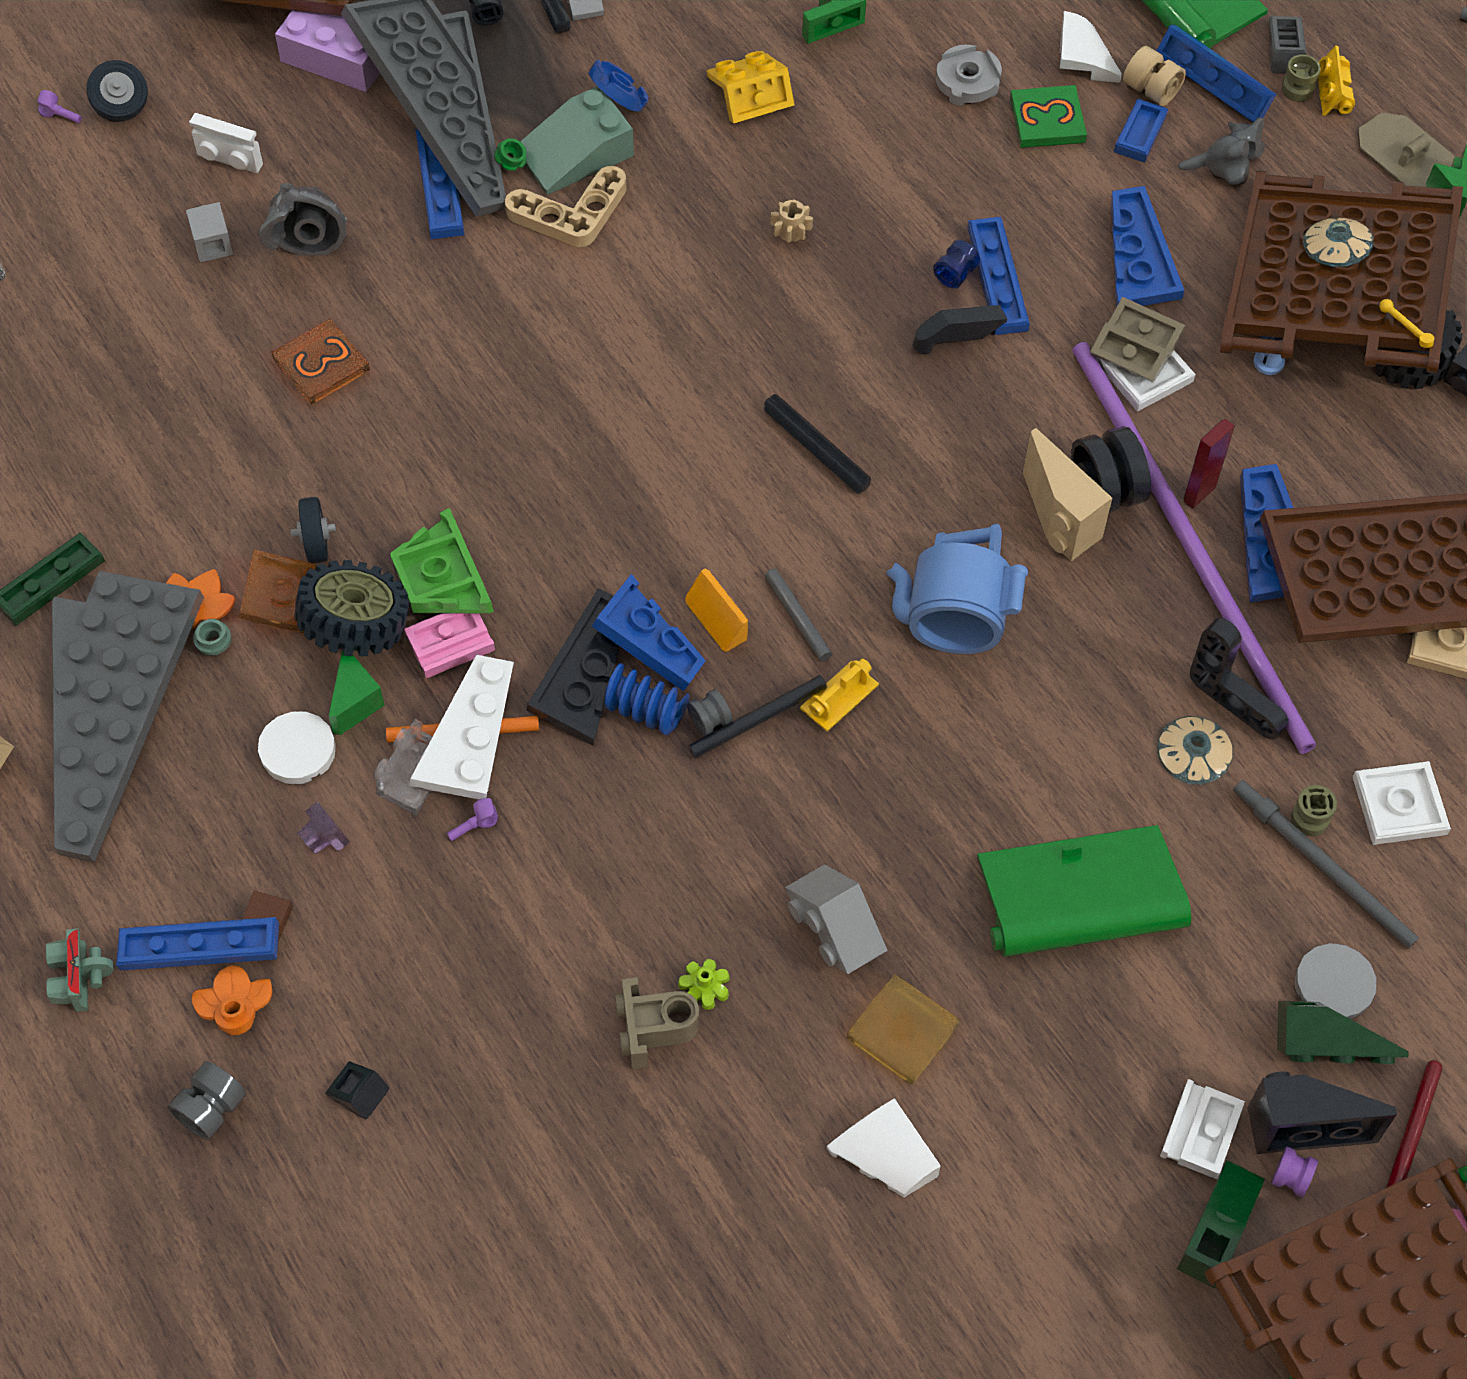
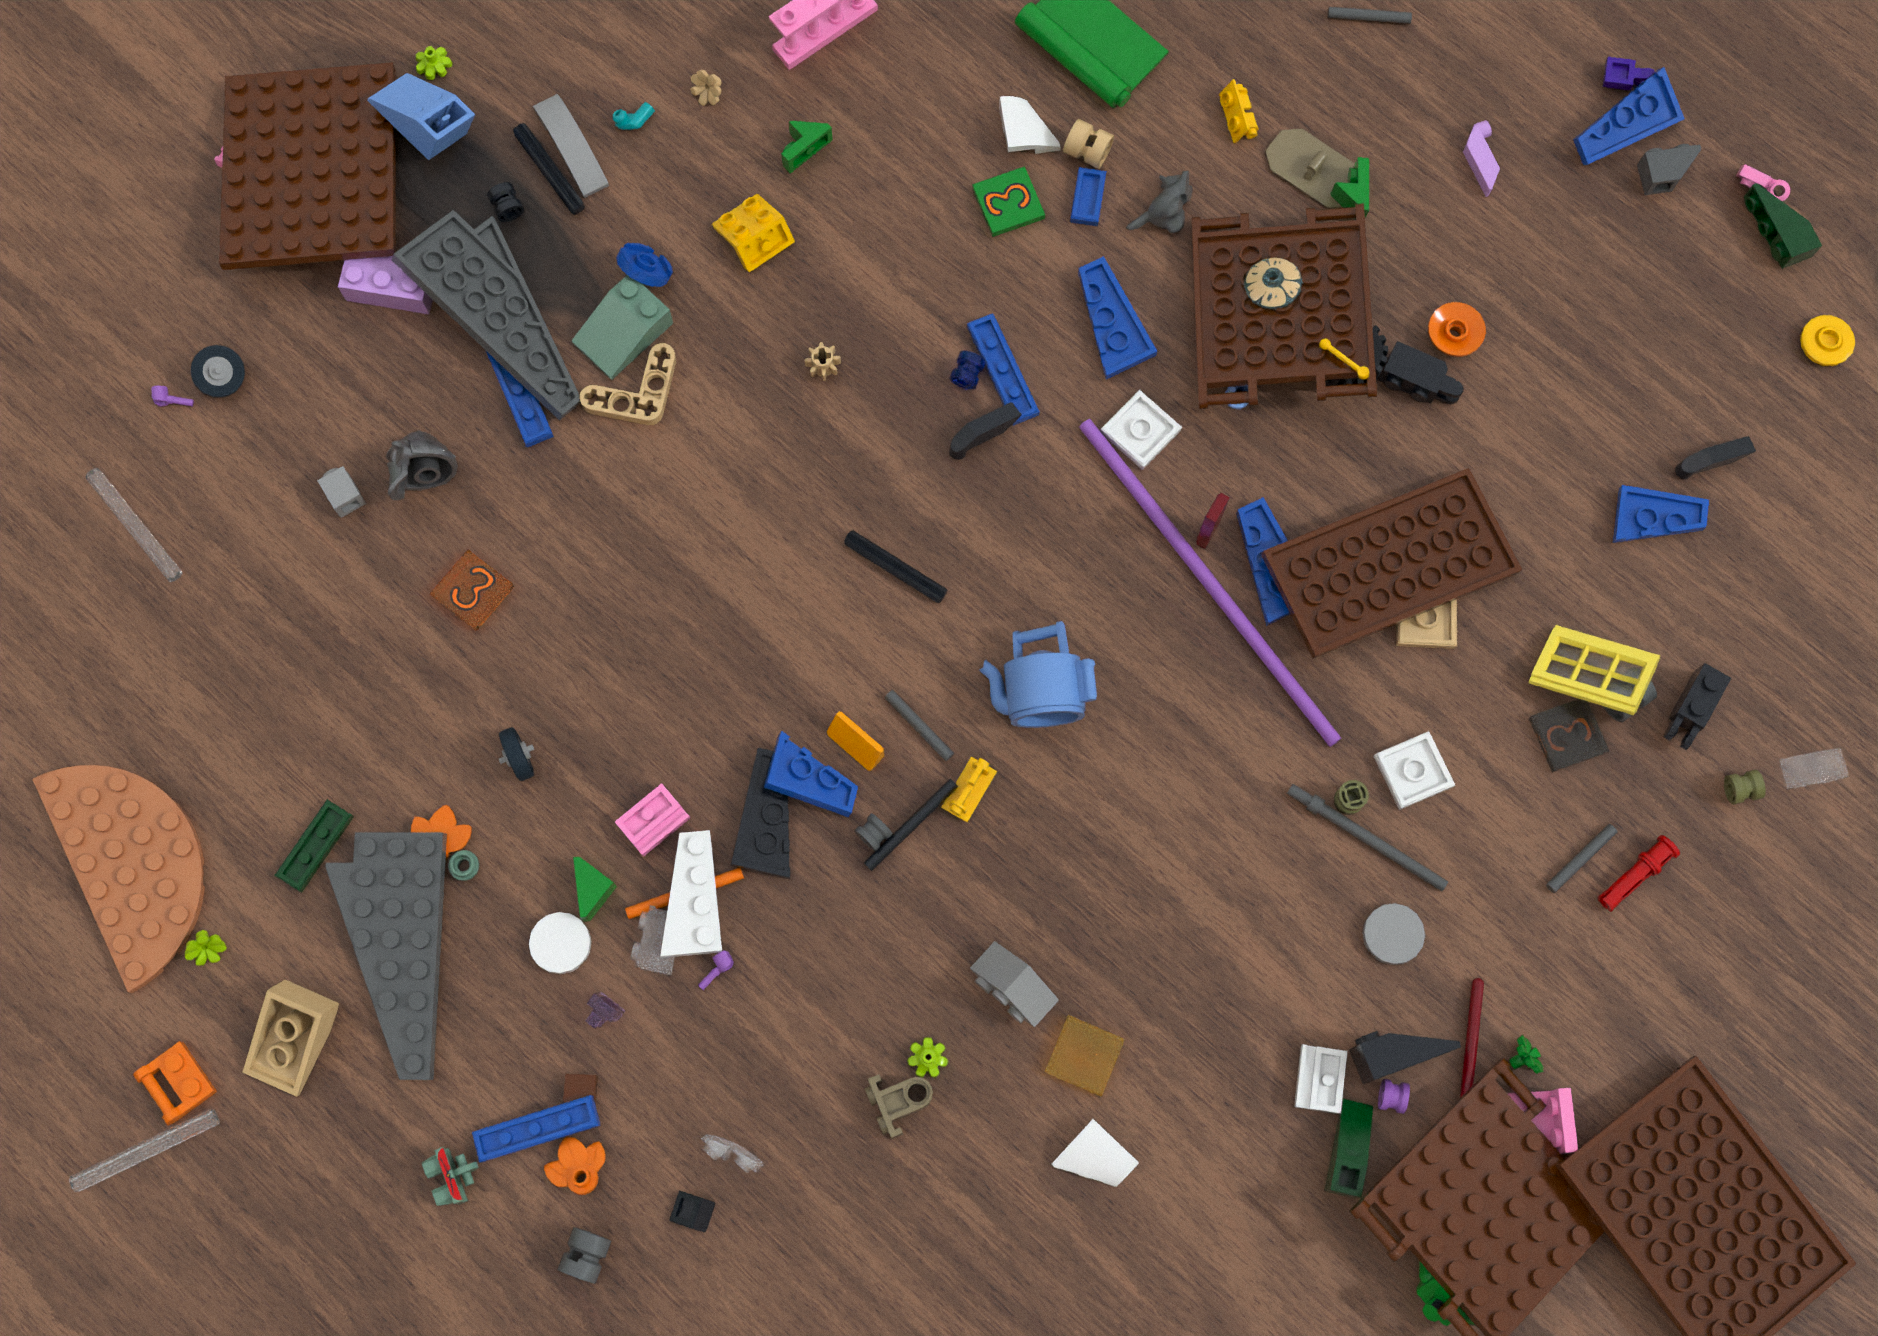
camera: 15 degrees left, 15 degrees up
(226, 143) = (326, 402): white plate -> none
(272, 590) = (507, 812): clear orange plate -> none
(351, 608) = (556, 835): black wheel -> none
(426, 1024) = (720, 1147): none -> clear slope
(440, 571) = (627, 762): bright green wing -> none
(515, 150) = (575, 347): green plate -> none
(643, 702) = (820, 836): blue piece -> none
(963, 88) = (933, 161): light grey plate -> none
(1065, 498) = (1107, 579): tan slope -> none
(1083, 891) = (1192, 908): green door -> none
(1115, 465) = (1136, 542): black wheel -> none
(1138, 339) = (1130, 409): dark tan slope -> none
(1190, 762) = (1245, 777): tan dish -> none
(1213, 676) = (1253, 699): black beam -> none
(1216, 74) = (1138, 128): blue tile -> none
(1285, 44) = (1194, 95): dark grey slope -> none
(1301, 77) = (1209, 114): olive wheel -> none
(1316, 1030) = (1393, 981): dark green slope -> none

